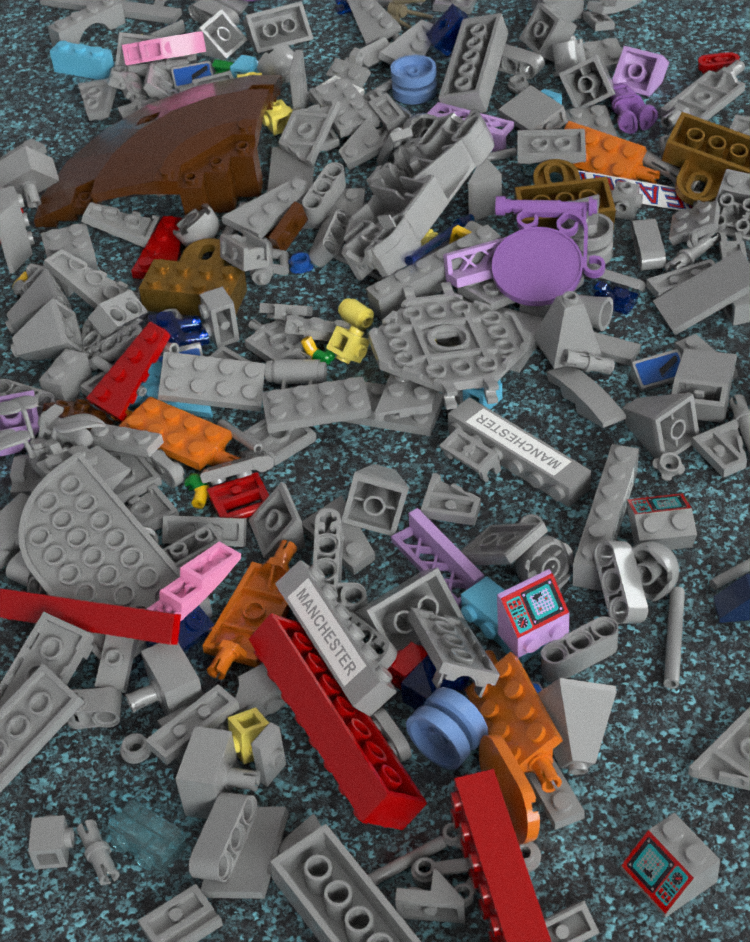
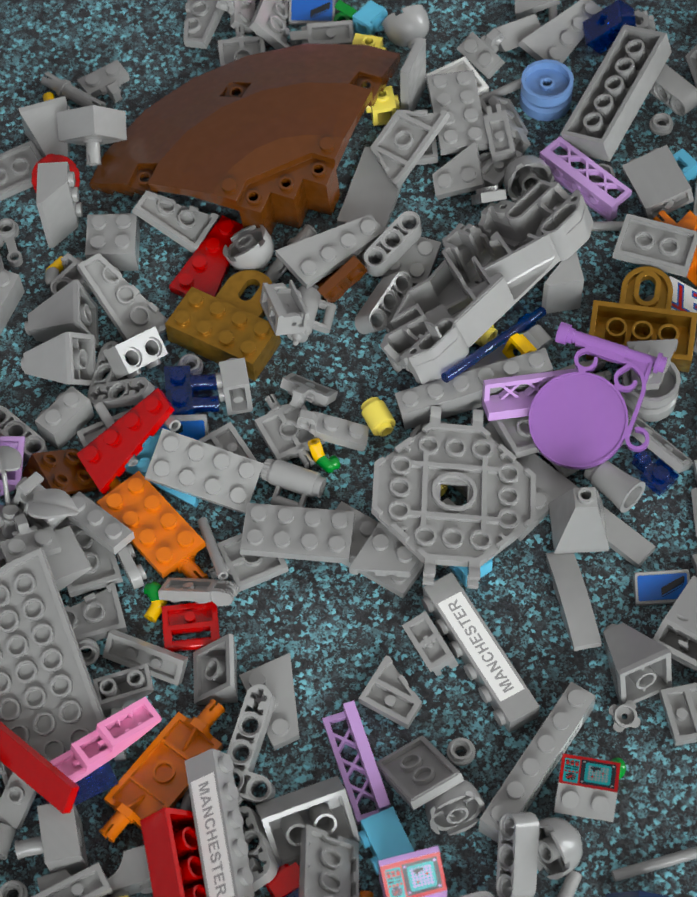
camera: 15 degrees right, 15 degrees up
(300, 263) = (344, 319): blue plate -> none
(348, 344) = (355, 460): light yellow brick -> none
(376, 499) = (319, 673): light grey slope -> none
(587, 362) = (590, 557): light grey pin -> none

